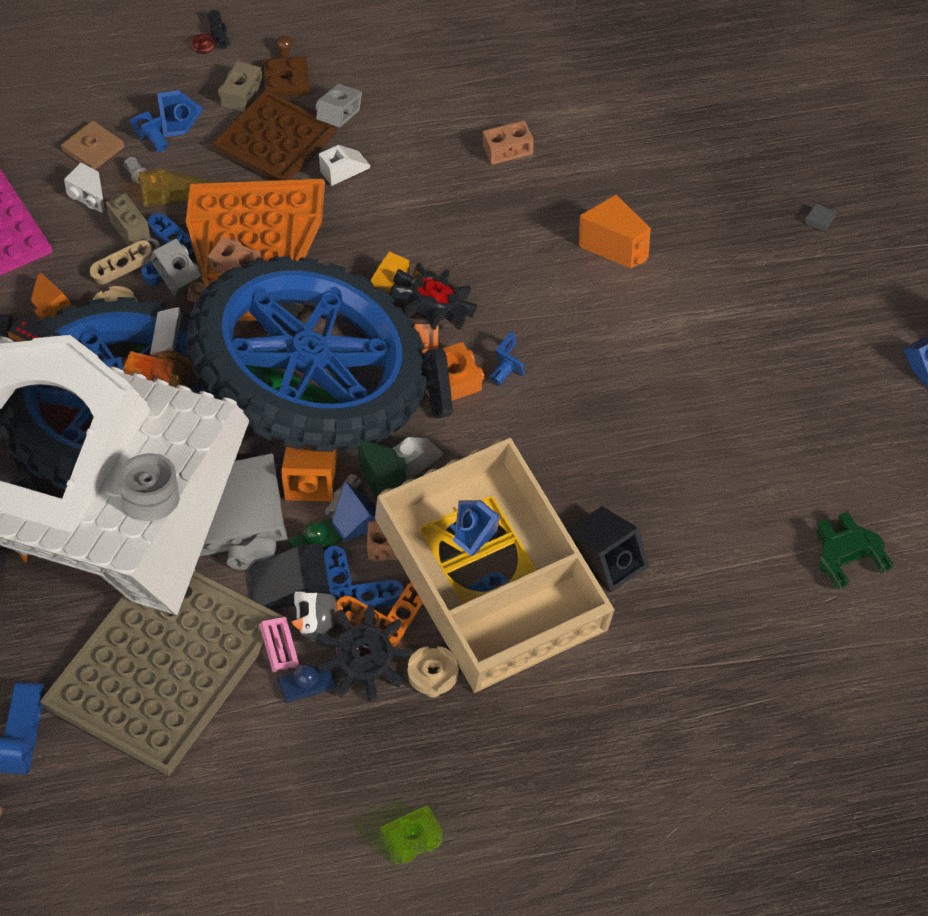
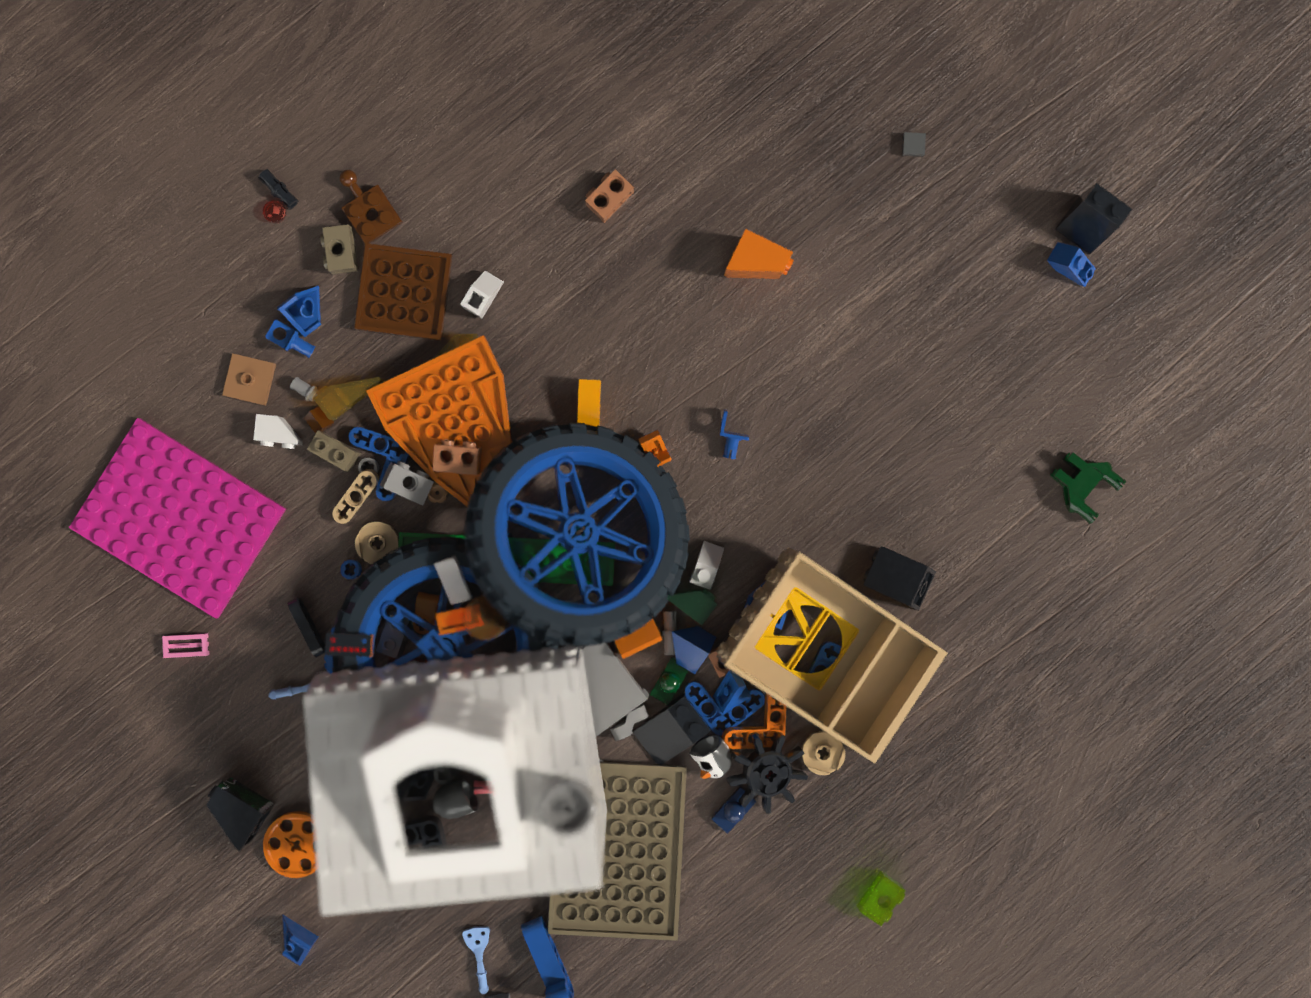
camera: 35 degrees left, 35 degrees up
(48, 298) = (319, 567): orange slope -> none
(134, 194) = (318, 420): none -> reddish brown slope
(284, 665) = (685, 782): bright pink tile -> none
(338, 105) = (443, 220): light grey brick -> none
(369, 570) = (731, 692): none -> blue slope
(433, 297) = (629, 404): black gear -> none
(439, 393) = (692, 494): black beam -> none
(463, 373) = (693, 454): orange brick -> none
(474, 525) = (812, 650): blue slope -> none

